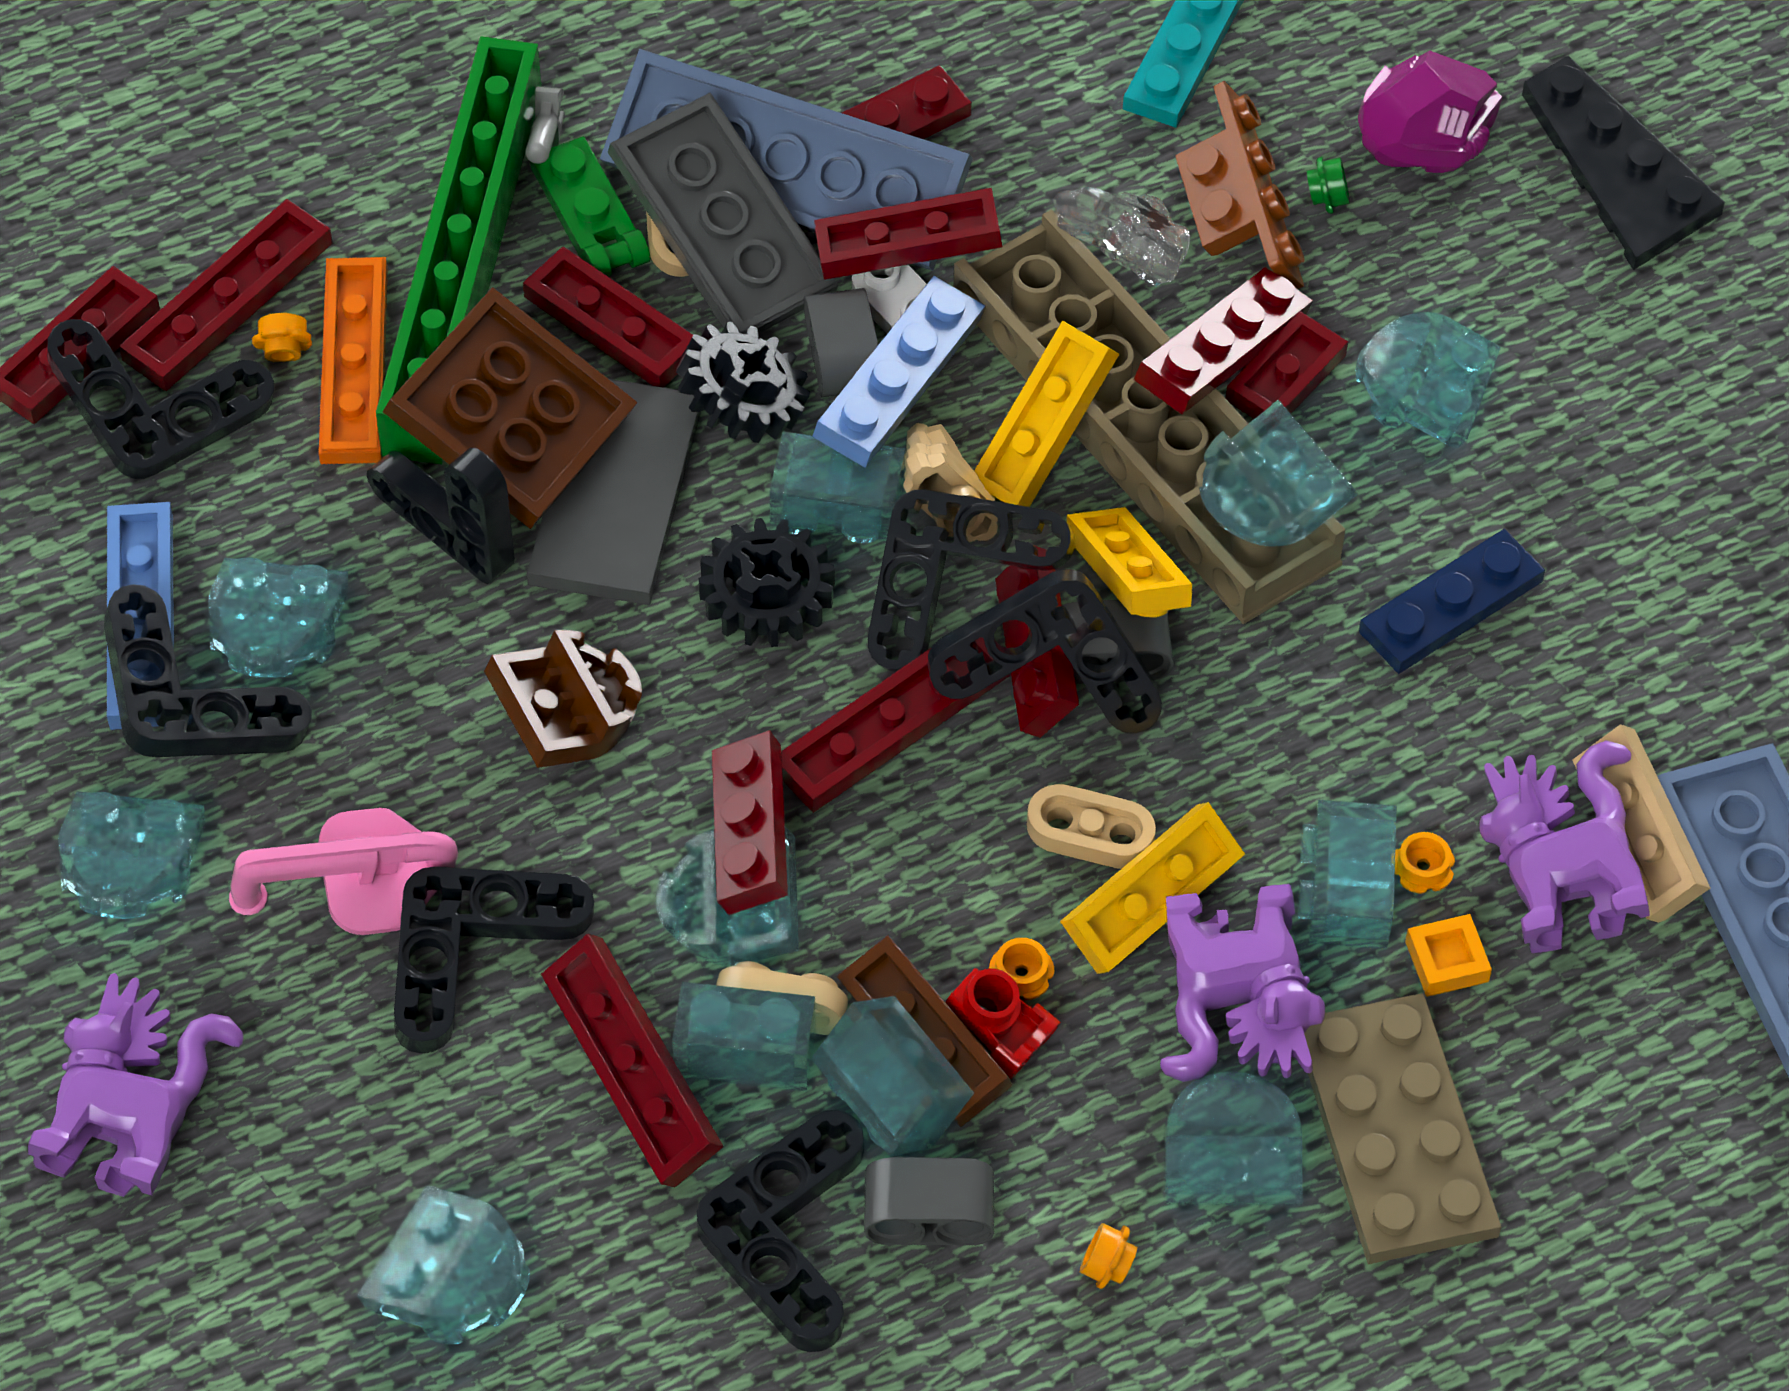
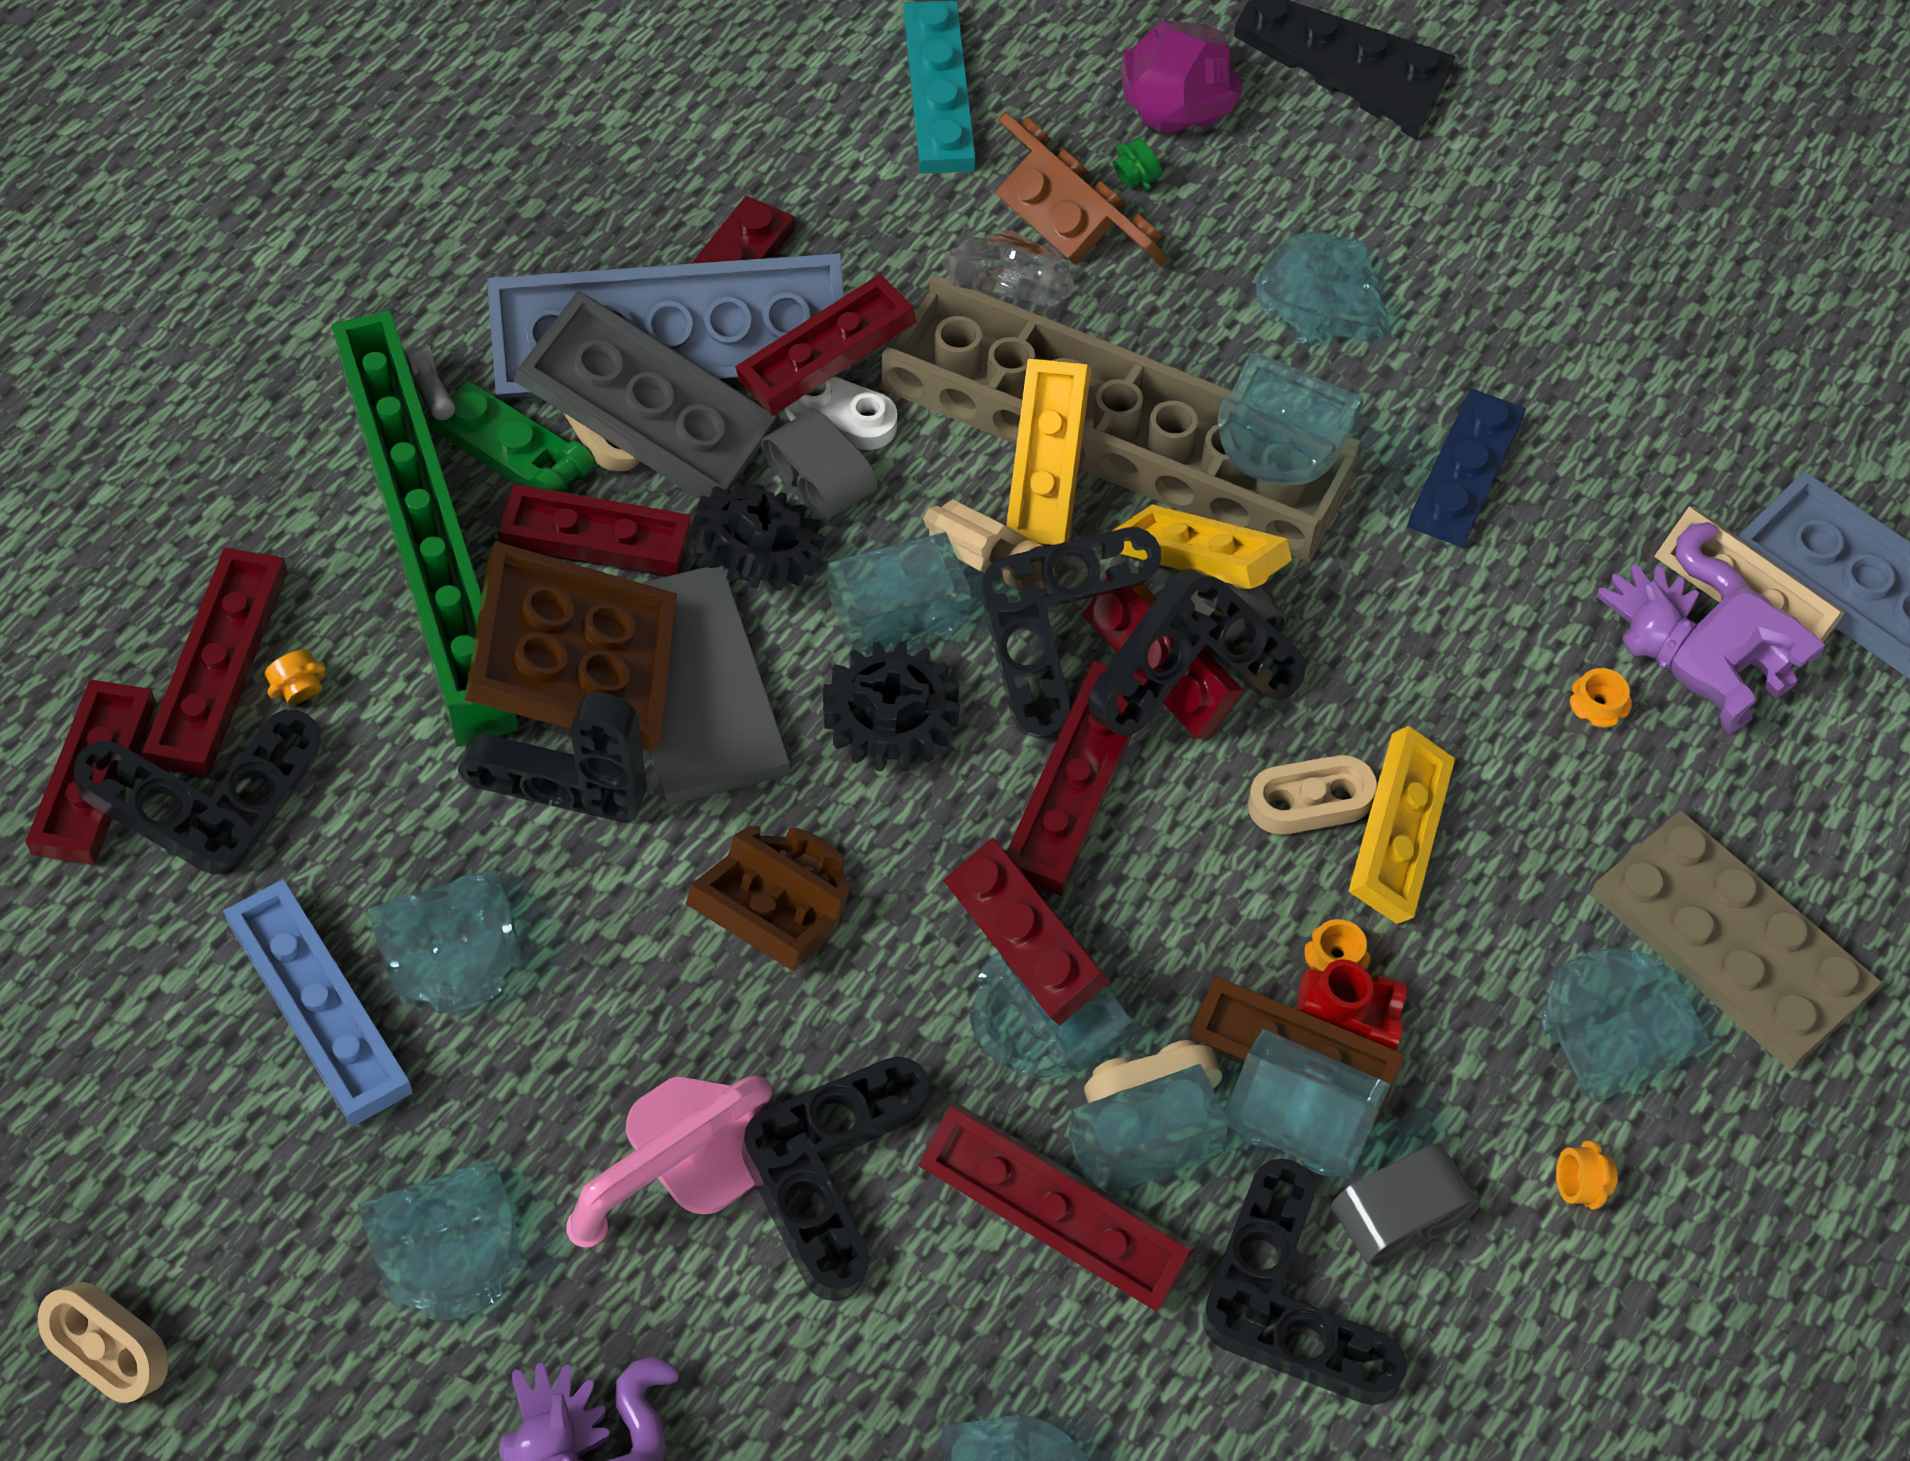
camera: 30 degrees left, 0 degrees up
(167, 701) = (401, 1070): black beam -> none
(352, 359) = (375, 671): orange tile -> none
(898, 371) = (897, 468): plate -> none
(1221, 340) = (1151, 326): plate -> none
(1238, 968) = (1527, 860): medium lavender animal -> none
(1287, 367) = (1209, 330): dark red plate -> none
(1350, 874) = (1556, 735): clear light blue brick -> none
(1448, 955) = (1677, 767): light orange plate -> none

